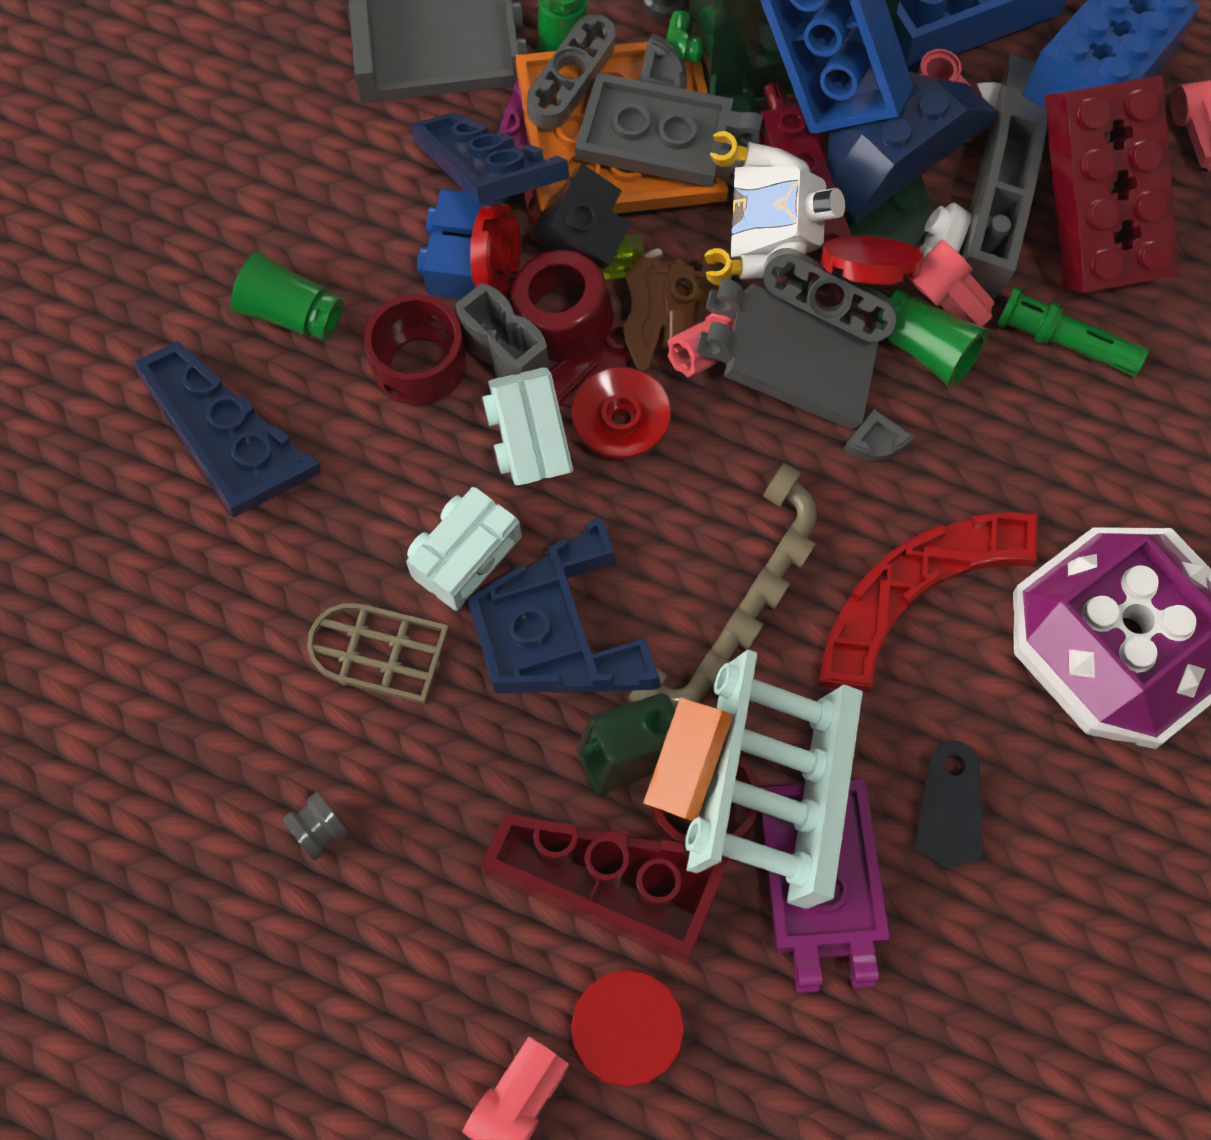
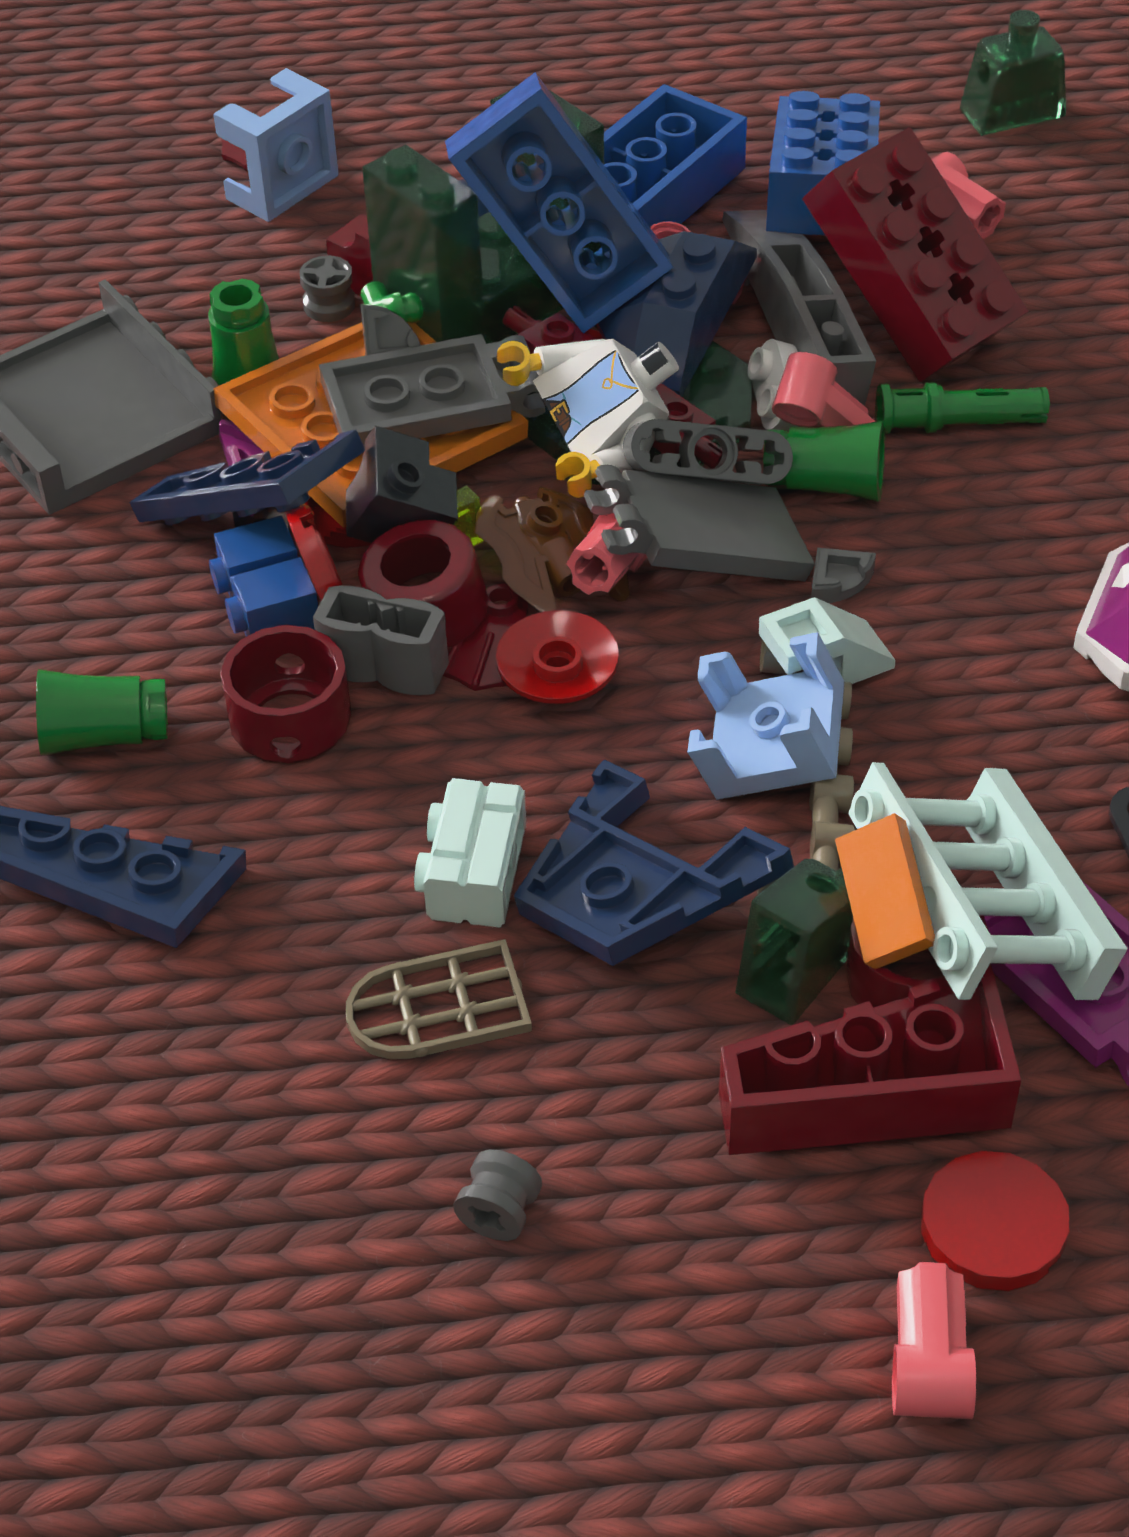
camera: 30 degrees left, 20 degrees down
(529, 426) = (472, 699): light aqua brick -> none
(571, 90) = (294, 391): dark grey beam -> none
(730, 555) = (771, 728): none -> light blue panel
(815, 500) = (847, 637): none -> light aqua slope
(872, 259) = (735, 395): red tile -> none
(909, 574) = (963, 667): red tile -> none

